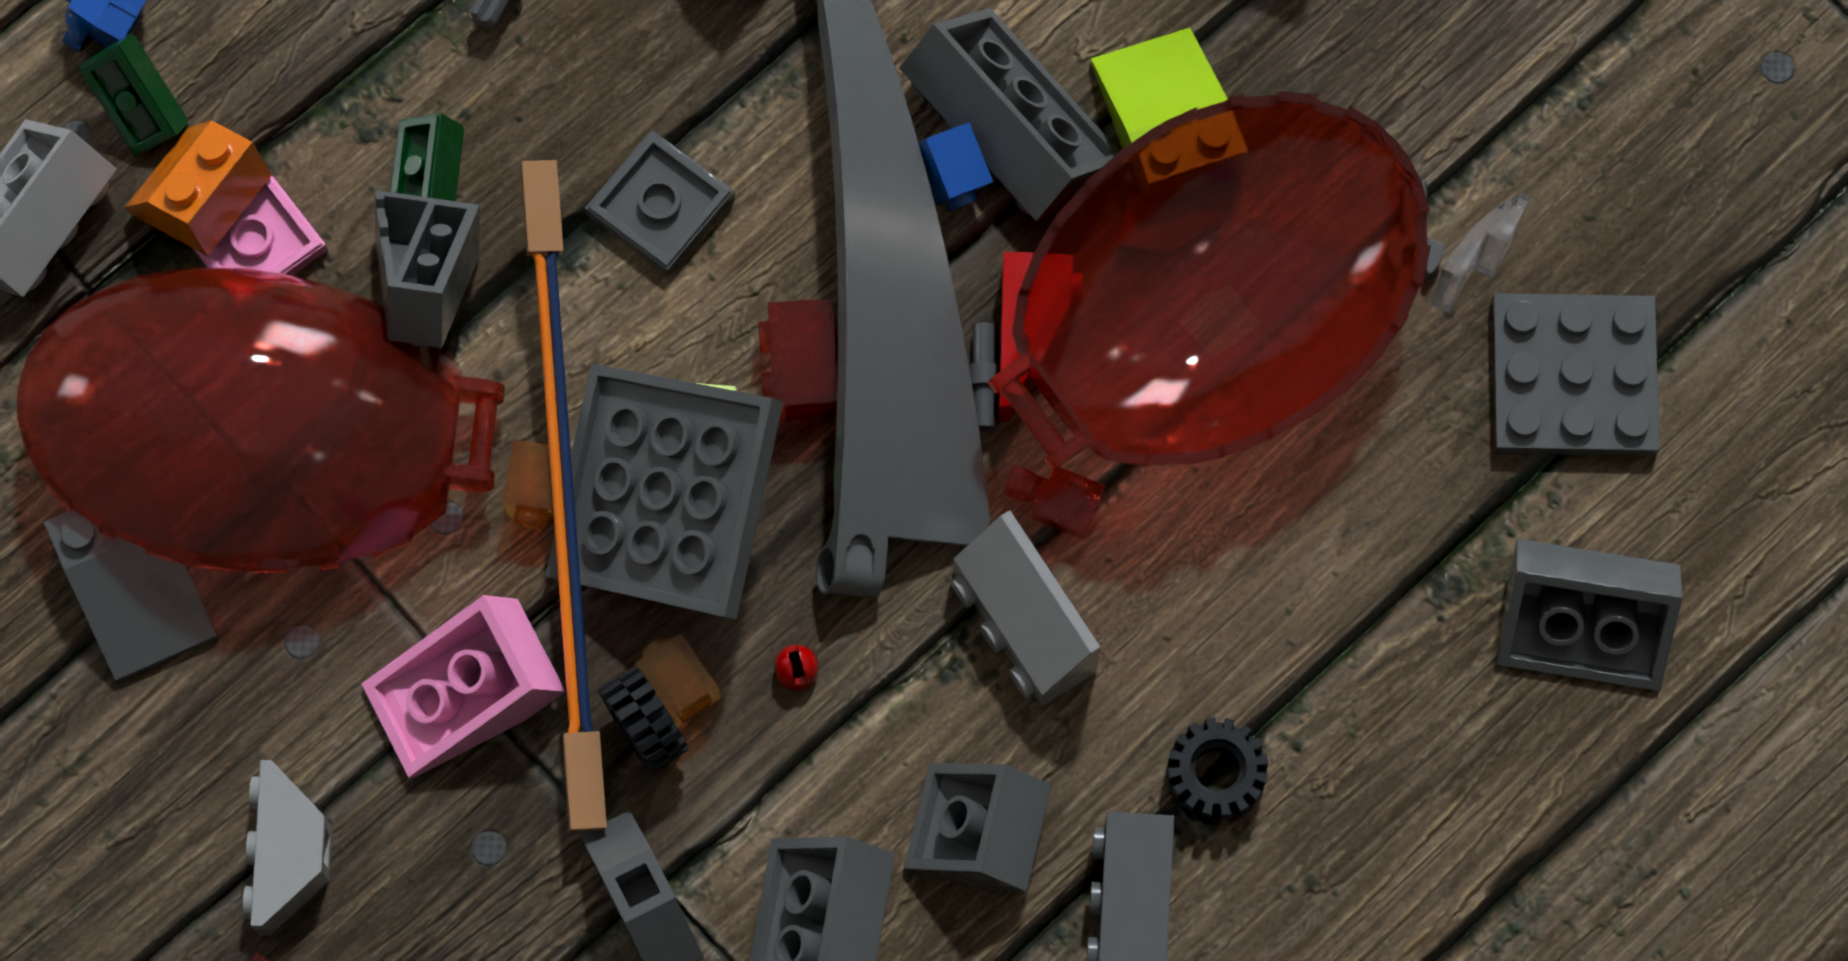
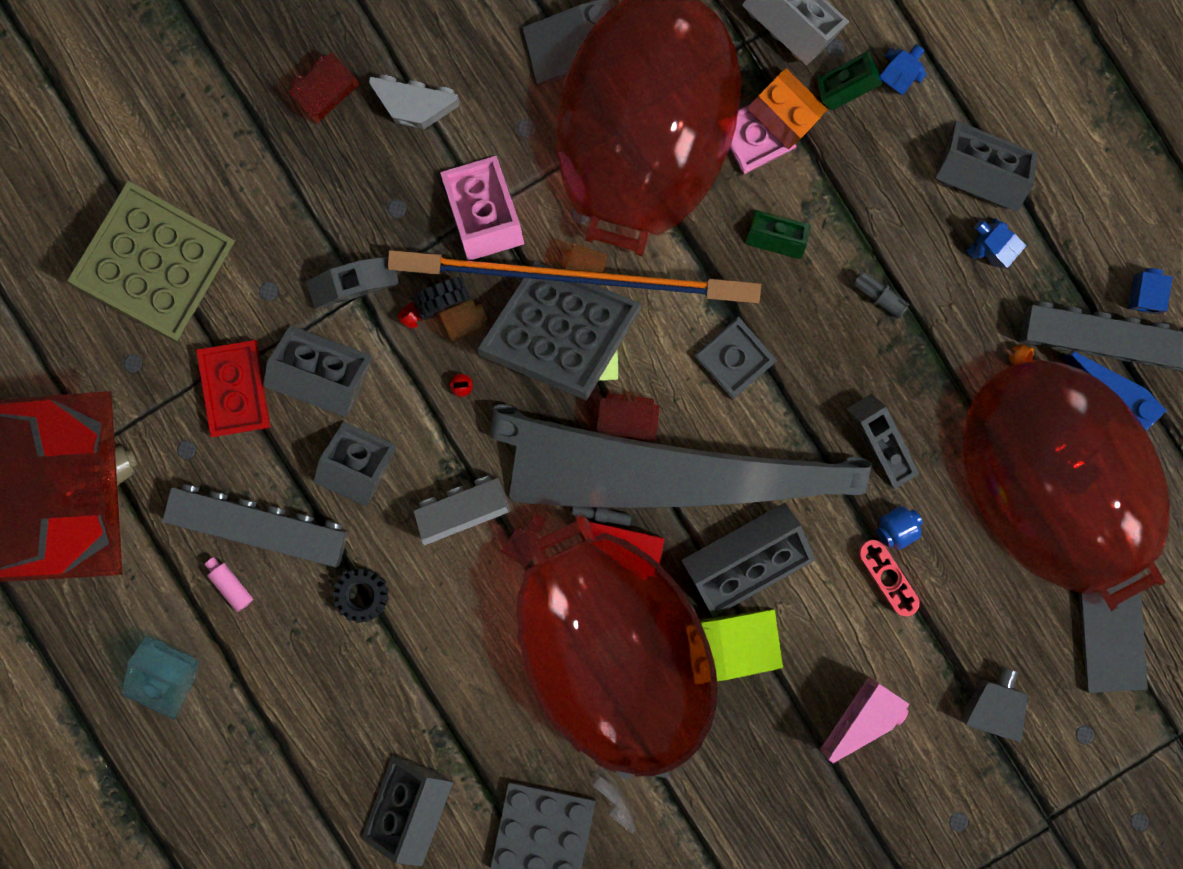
camera: 95 degrees right, 15 degrees up
(424, 263) = (715, 223): dark grey wedge -> none
(677, 772) = (409, 316): none -> red hinge
(954, 167) = (720, 521): blue brick -> none

